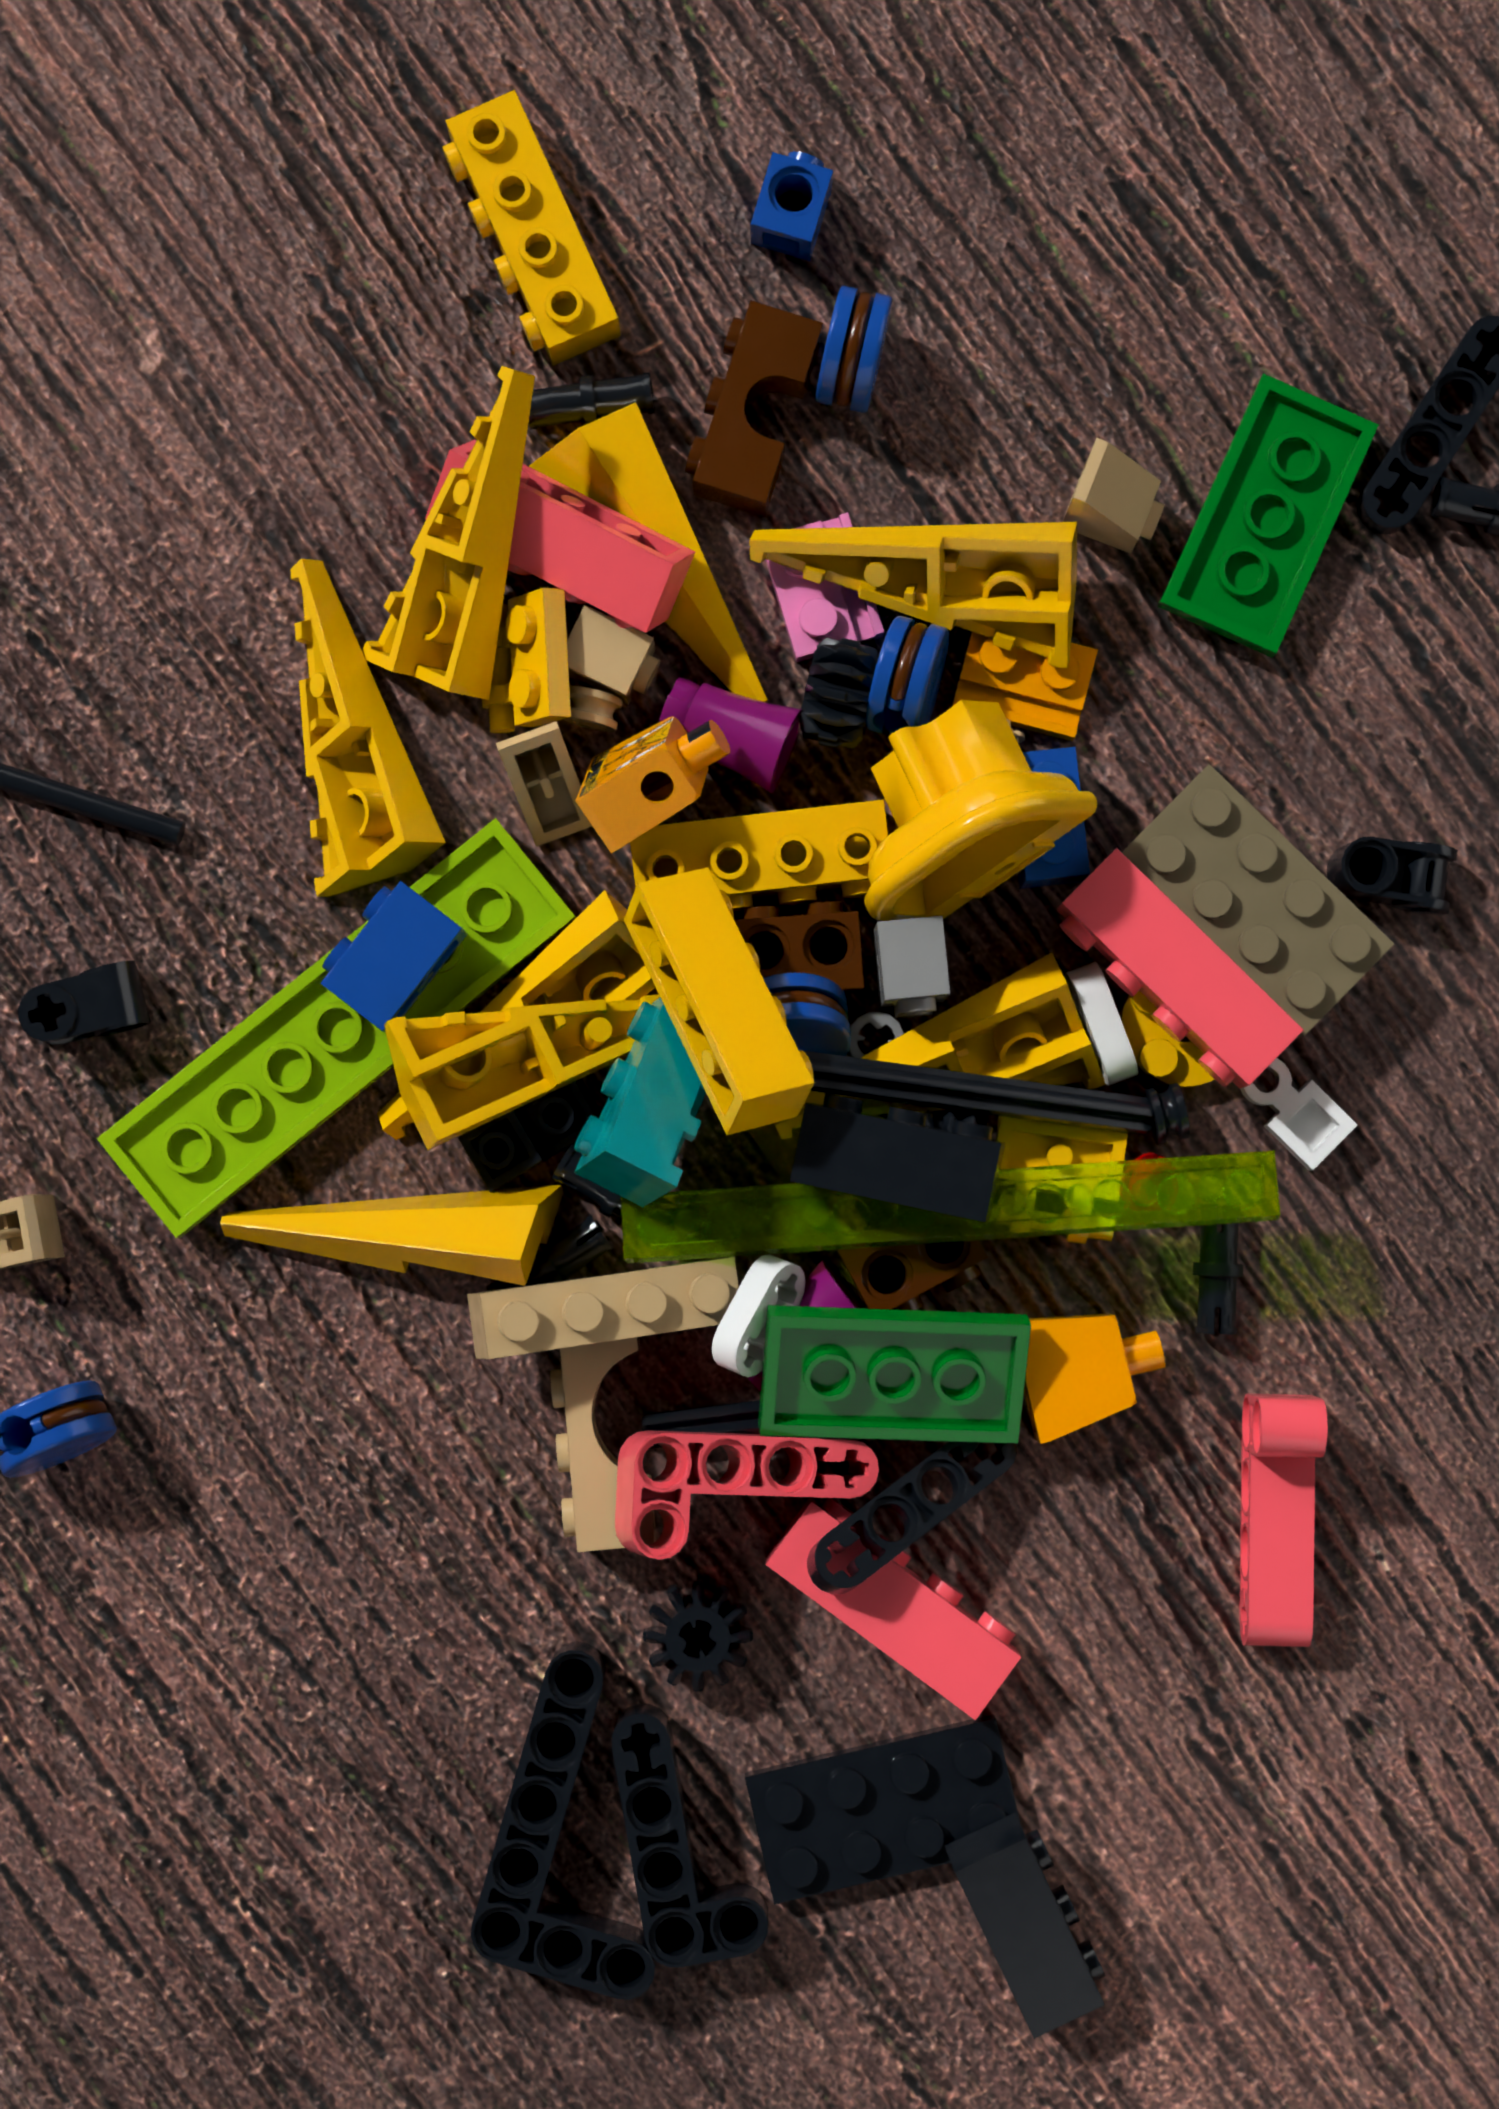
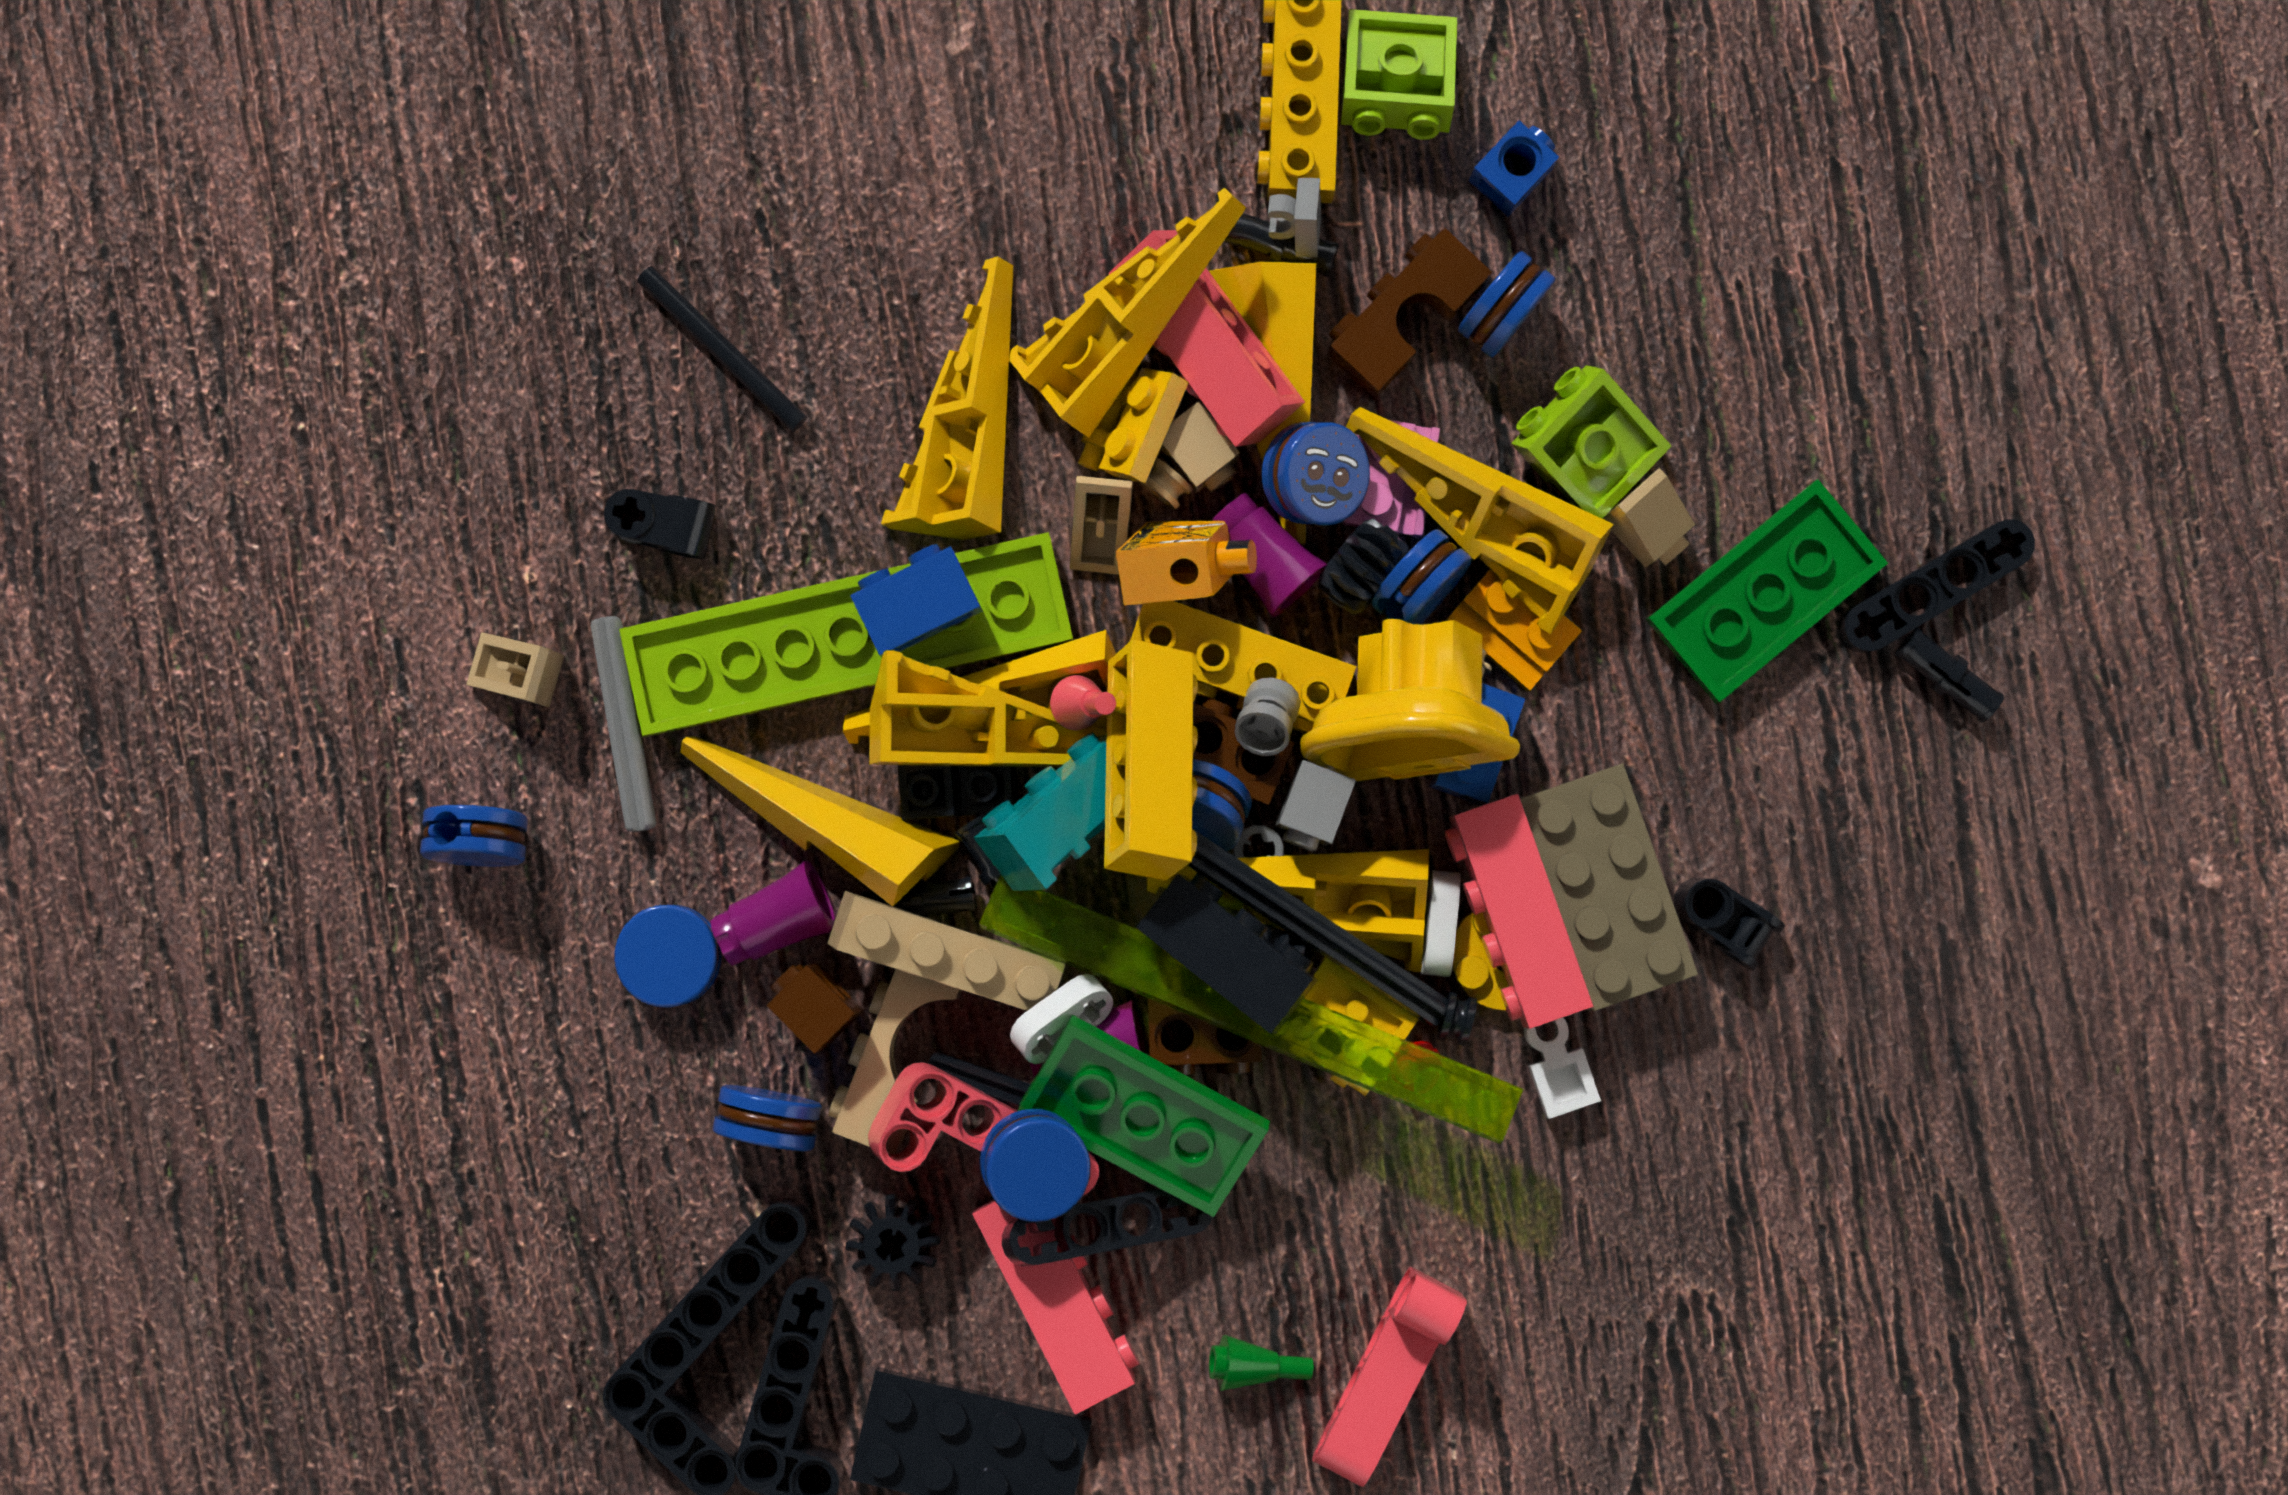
camera: 25 degrees right, 0 degrees up
(151, 1237) = (623, 726): none -> light grey axle
(316, 1453) = (667, 956): none -> blue head
(408, 1357) = (775, 916): none -> magenta plant
(493, 1430) = (813, 1005): none -> reddish brown brick
(502, 1571) = (767, 1118): none -> blue head
(593, 363) = (1298, 217): none -> light grey tile
(615, 978) = (1079, 702): none -> coral cone
(624, 165) = (1399, 73): none -> lime plate
(742, 620) = (1315, 473): none -> blue head
(806, 1481) = (1035, 1165): none -> blue head
(817, 896) = (1267, 716): none -> light grey wheel
(1009, 448) = (1590, 440): none -> lime plate
(1083, 1371) = (1292, 1186): light orange torso -> none
(1123, 1580) = (1245, 1364): none -> green cone
(1217, 1278) = (1433, 1166): black pin -> none

